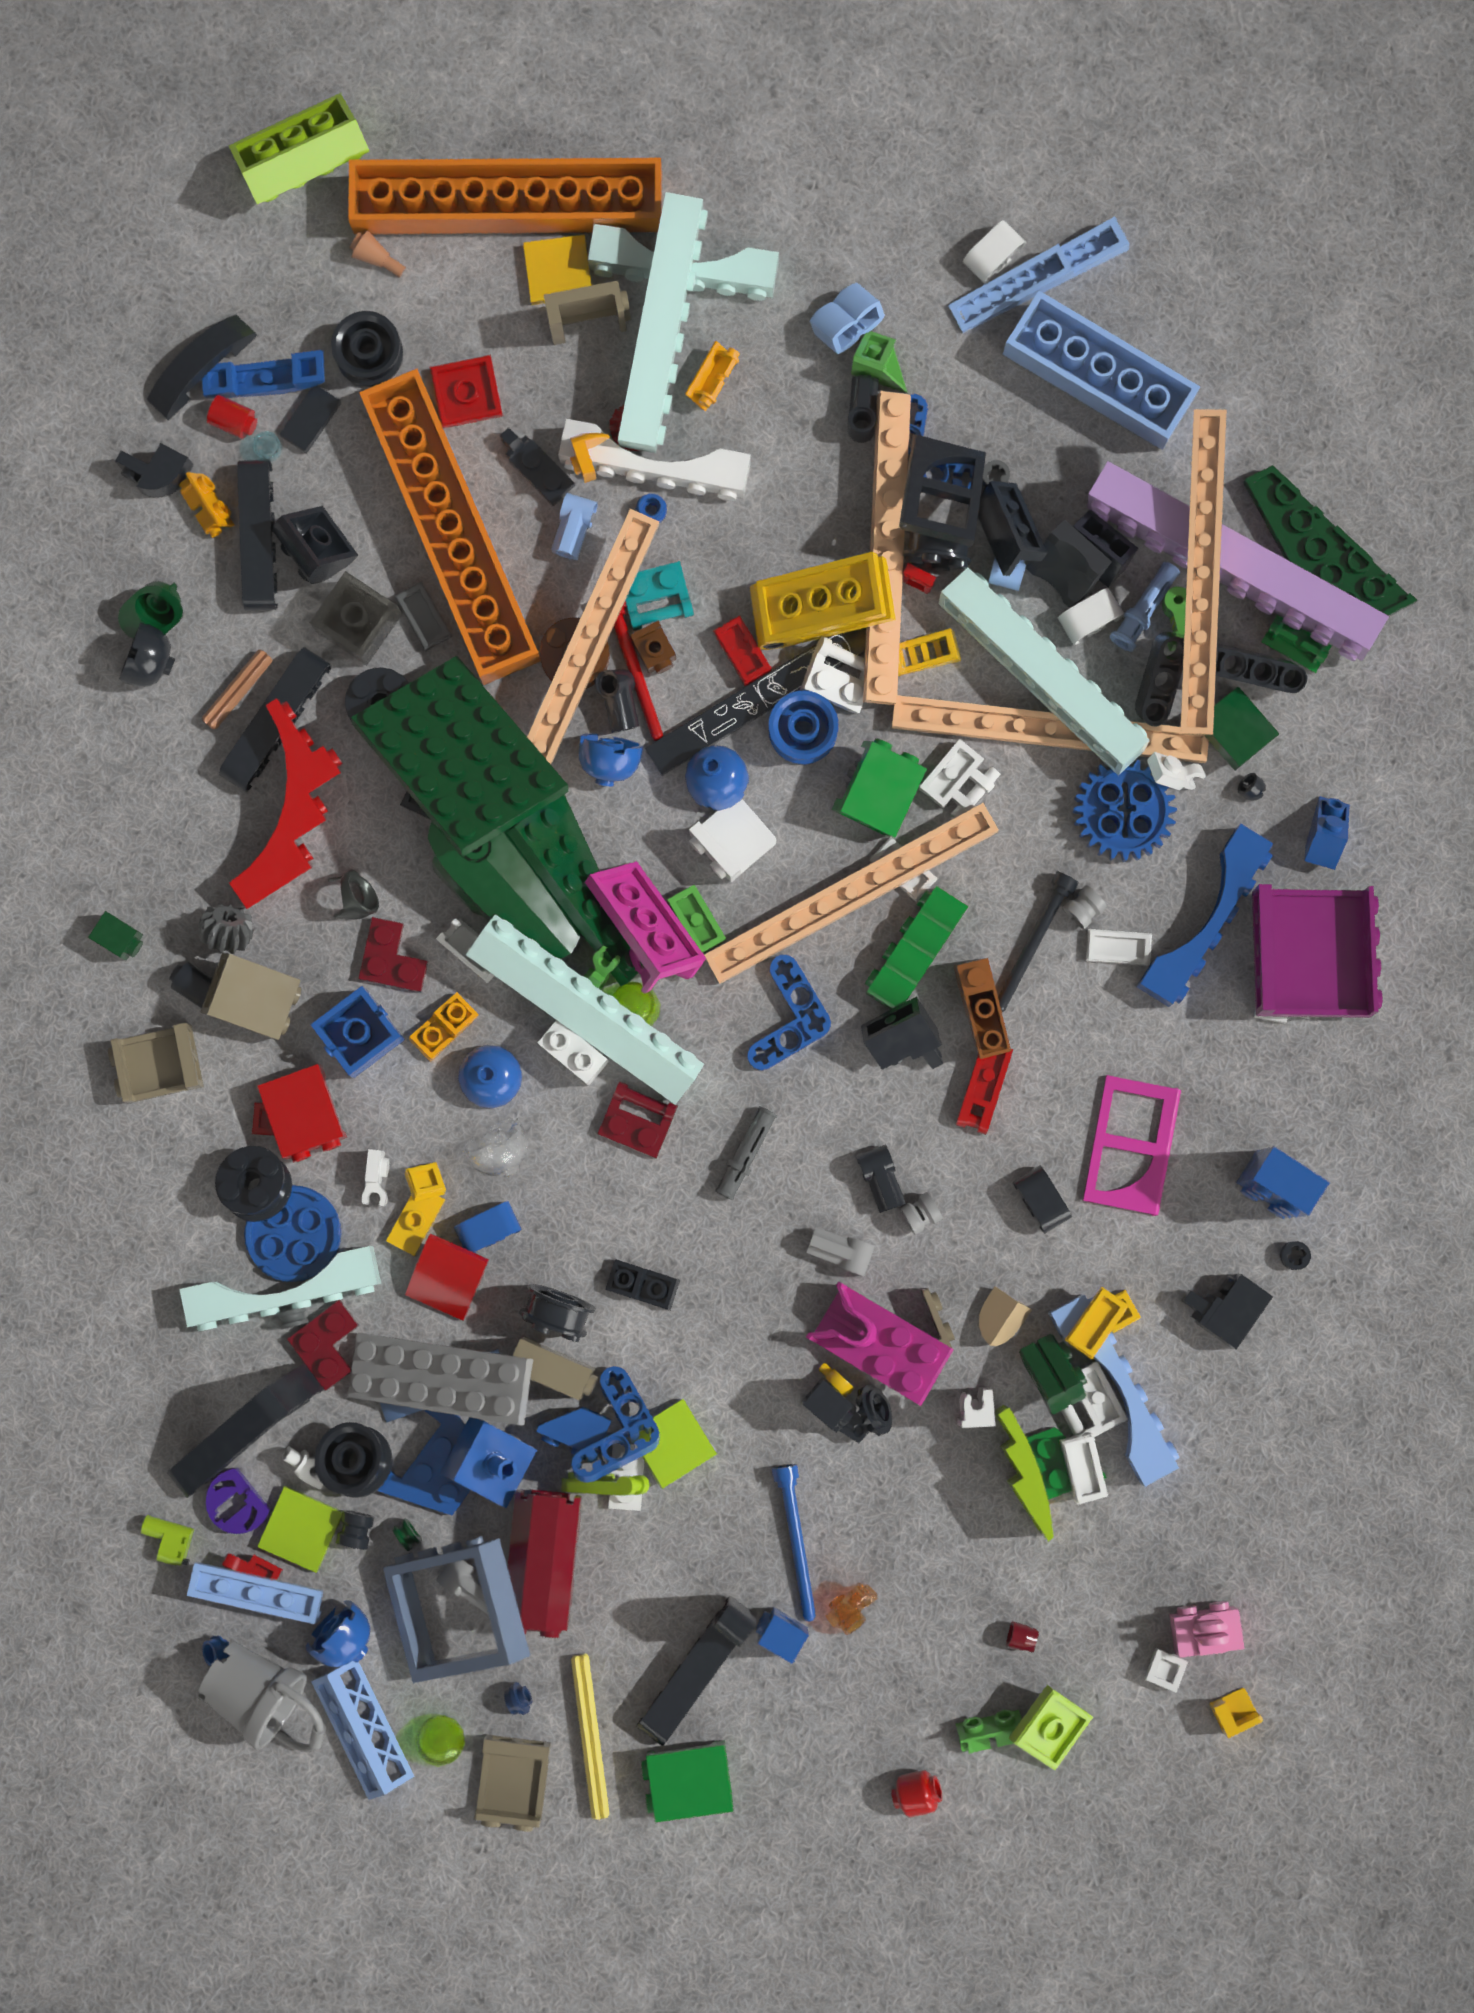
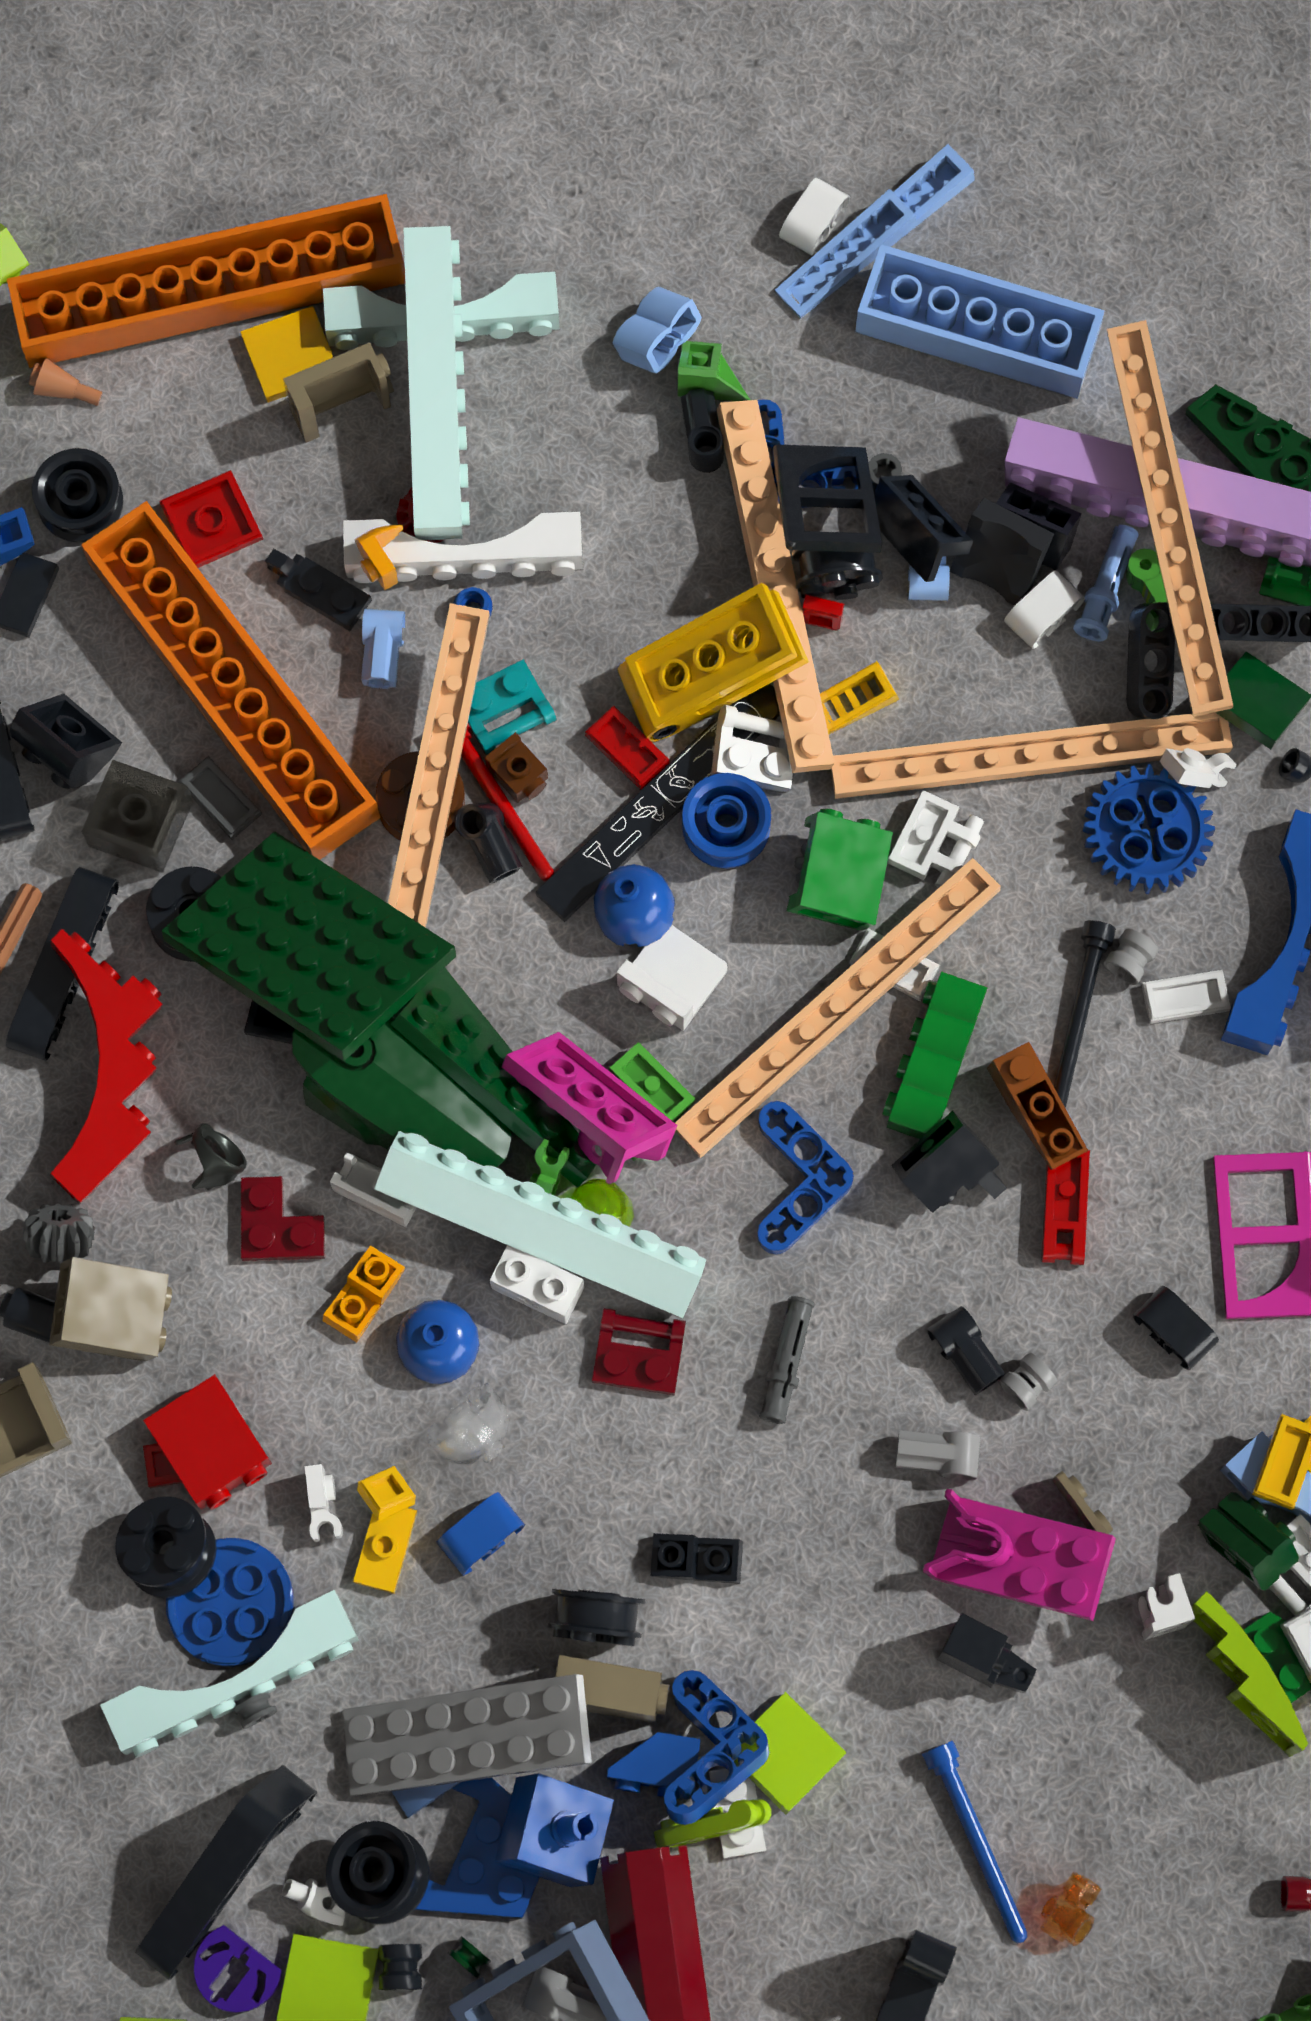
camera: 15 degrees left, 10 degrees down
(317, 1341) = (293, 1737): dark red plate -> none
(357, 1032) = (257, 1322): blue brick -> none
(446, 1277) = (443, 1607): red slope -> none
(609, 758) = (494, 913): blue cylinder -> none
(711, 374) = (507, 432): light orange hinge -> none
(781, 1634) = (991, 1963): blue brick -> none
(836, 1380) = (975, 1613): yellow piece -> none
(874, 1410) = (1034, 1643): black gear -> none
(1001, 1317) = (1164, 1487): tan brick -> none
(1044, 670) = (1005, 684): light aqua brick -> none

